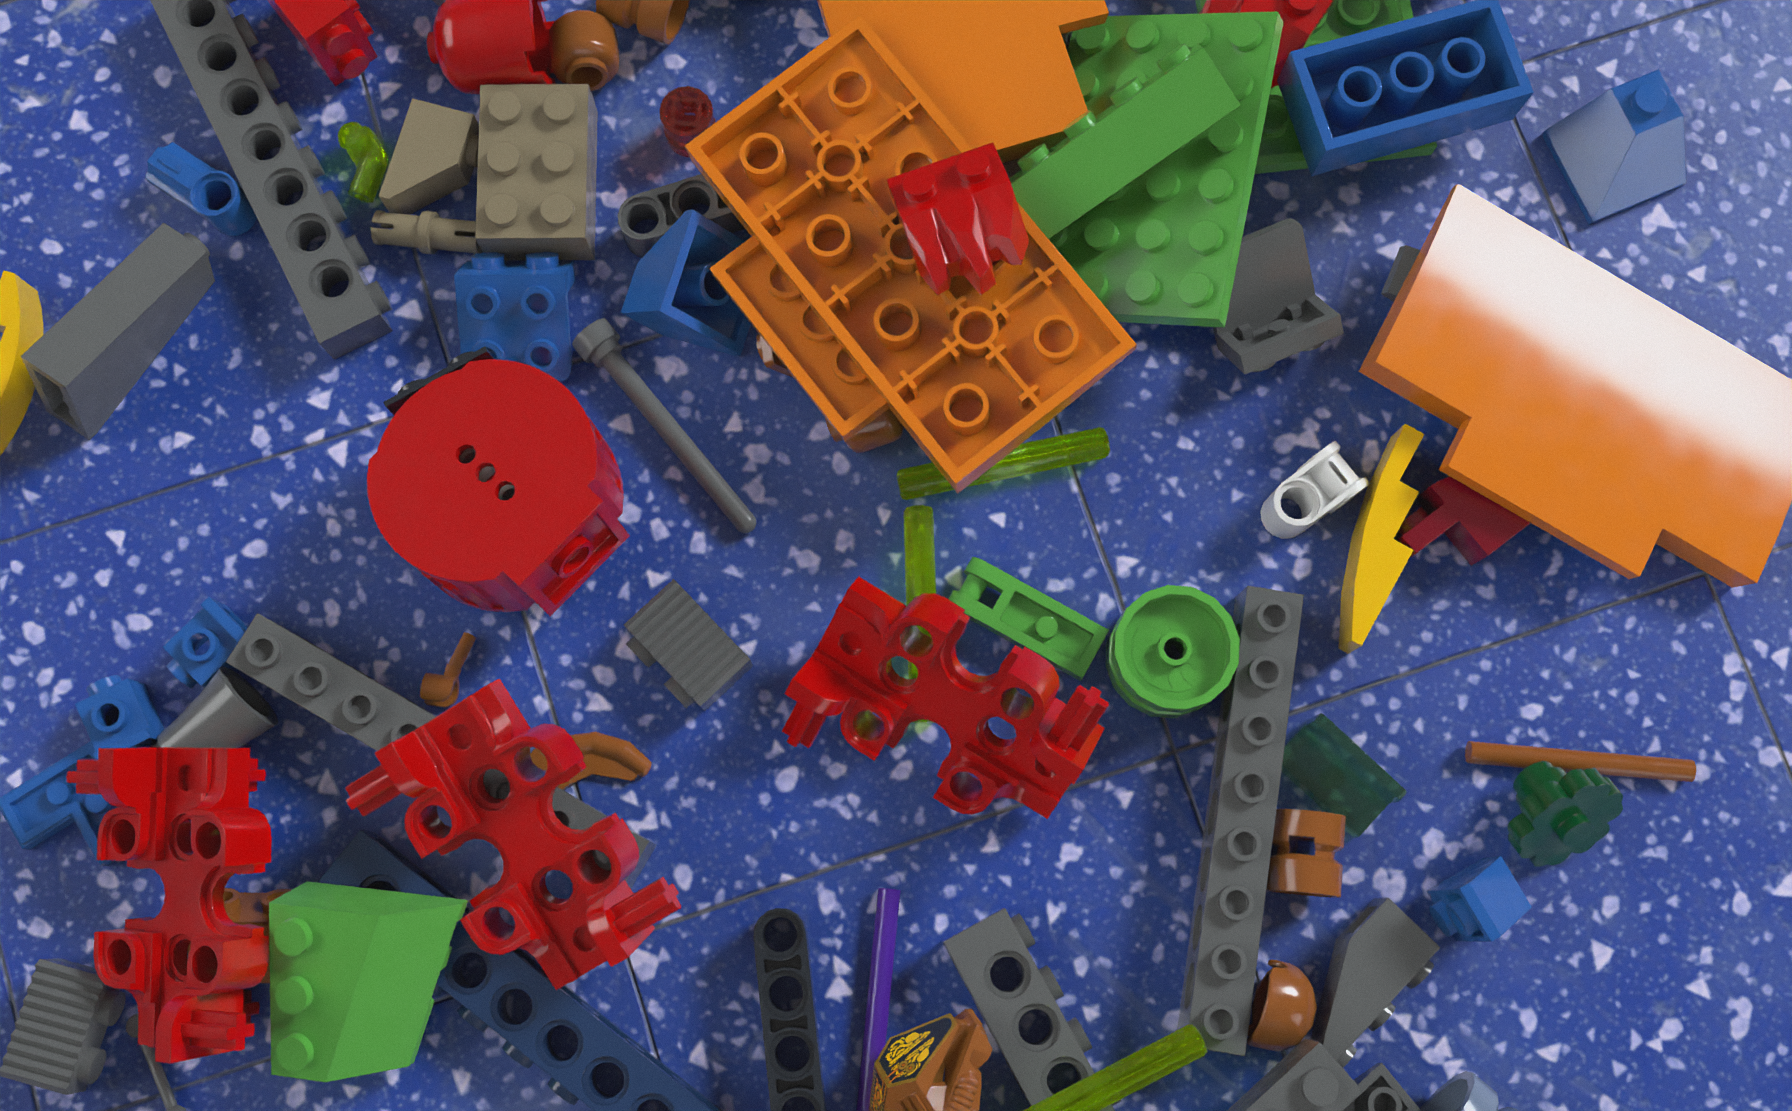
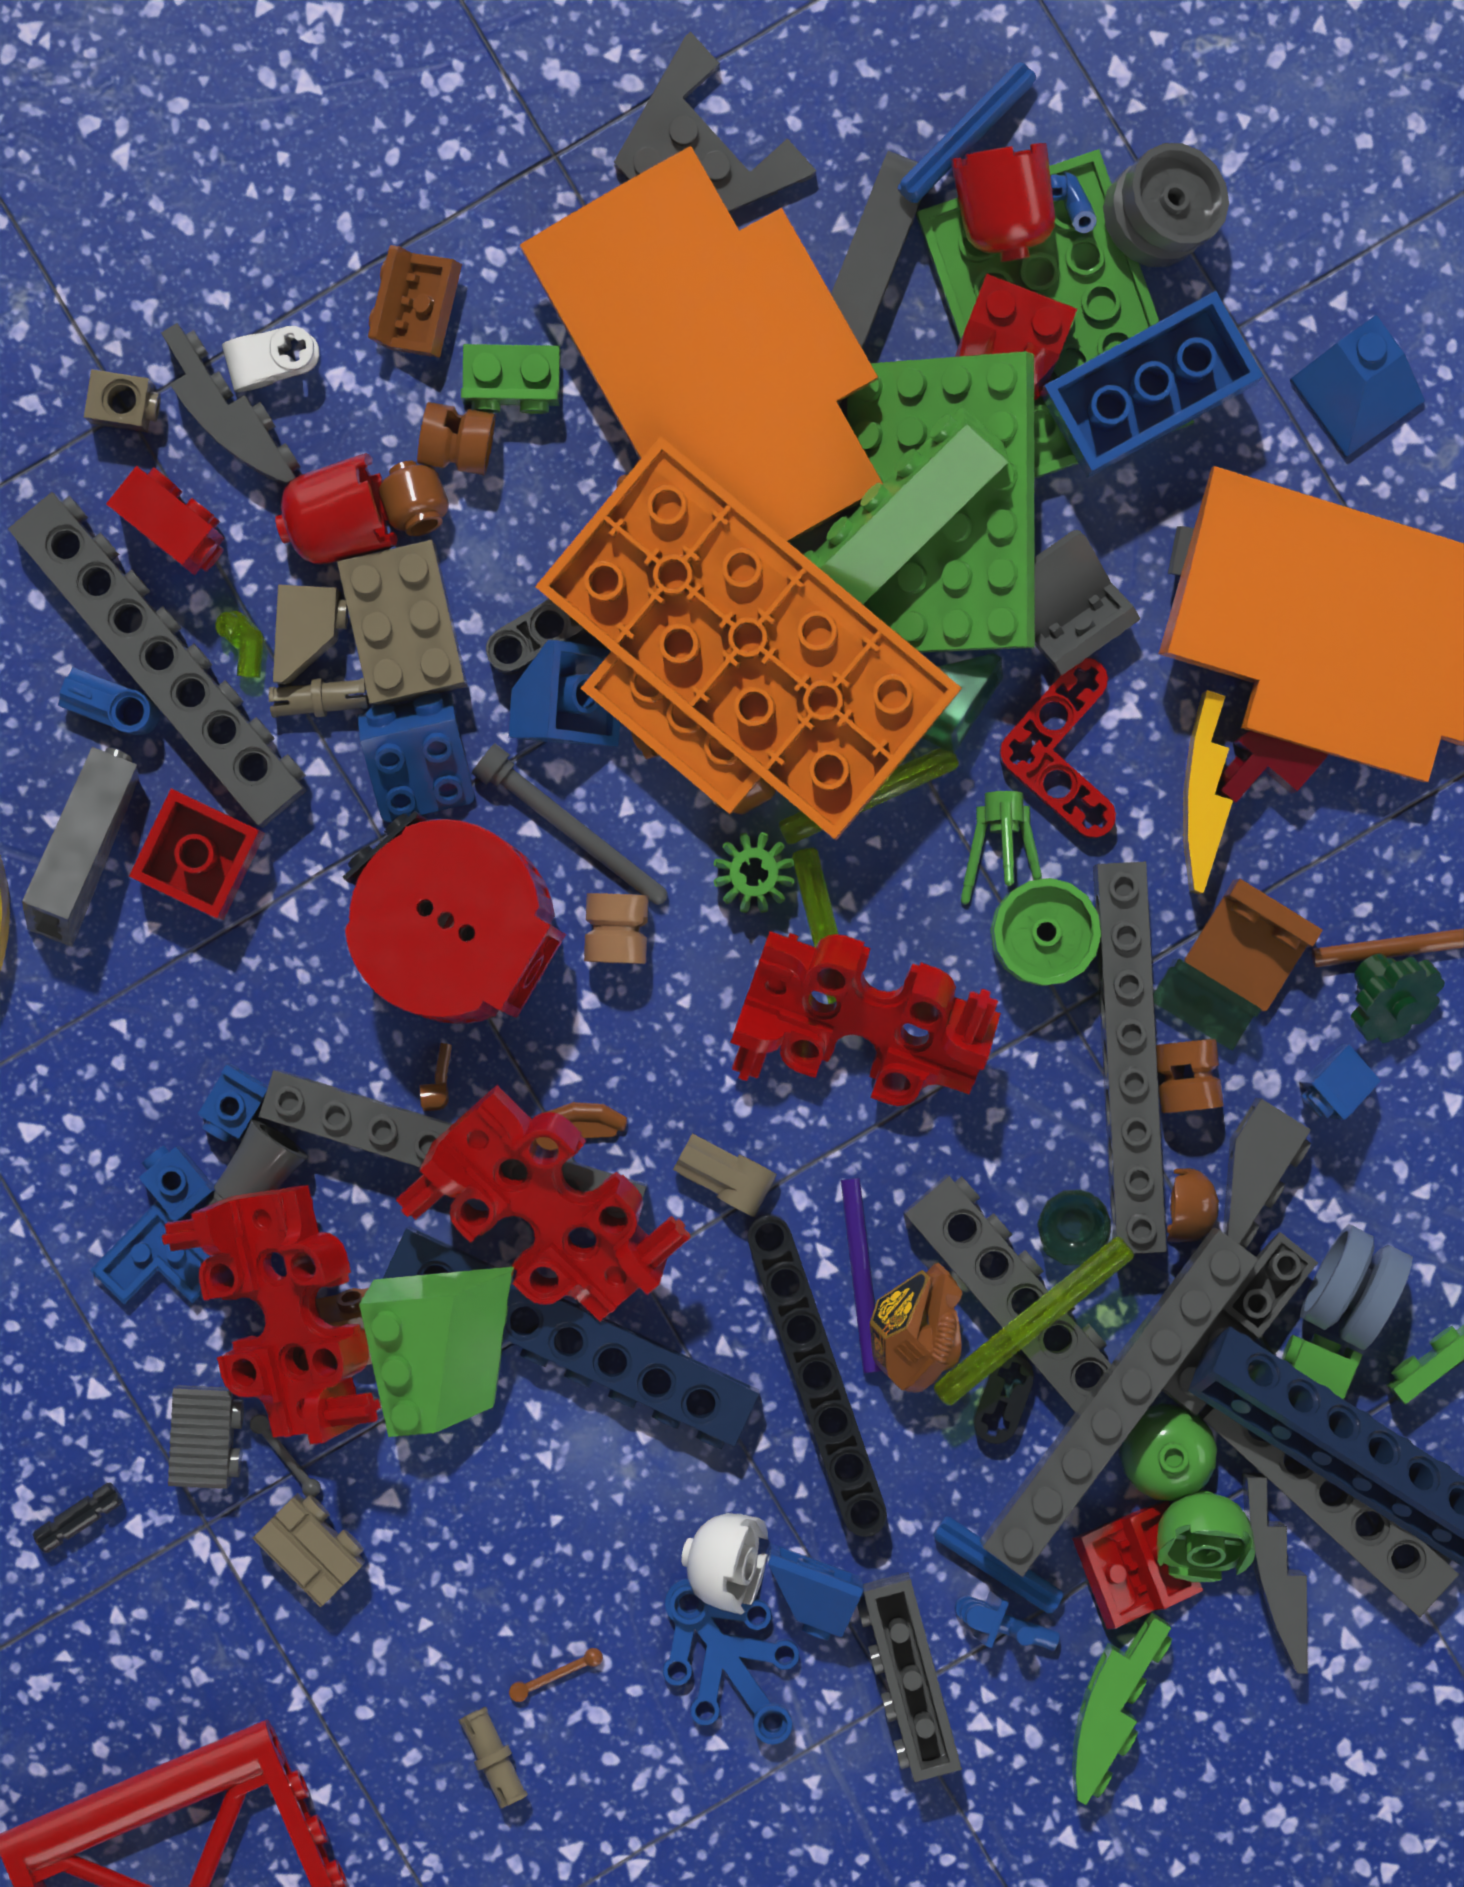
camera: 10 degrees left, 10 degrees up
(245, 361) = (197, 854): none -> red brick
(683, 128) = (529, 551): clear red wheel -> none
(688, 544) = (616, 928): none -> medium nougat wheel
(688, 646) = (634, 1015): dark grey brick -> none
(755, 857) = (733, 1178): none -> dark tan piece
(877, 515) = (768, 865): none -> bright green gear
(960, 218) = (790, 610): red plate -> none
(1030, 619) = (919, 927): bright green plate -> none
(1129, 383) = (978, 680): none -> clear green slope
(1138, 1002) = (1073, 1226): none -> hair
(1150, 518) = (1004, 813): none -> bright green plant
(1208, 468) = (1047, 760): none -> red beam
(1318, 489) = (1146, 756): white piece -> none
(1409, 713) = (1251, 943): none -> dark orange bracket

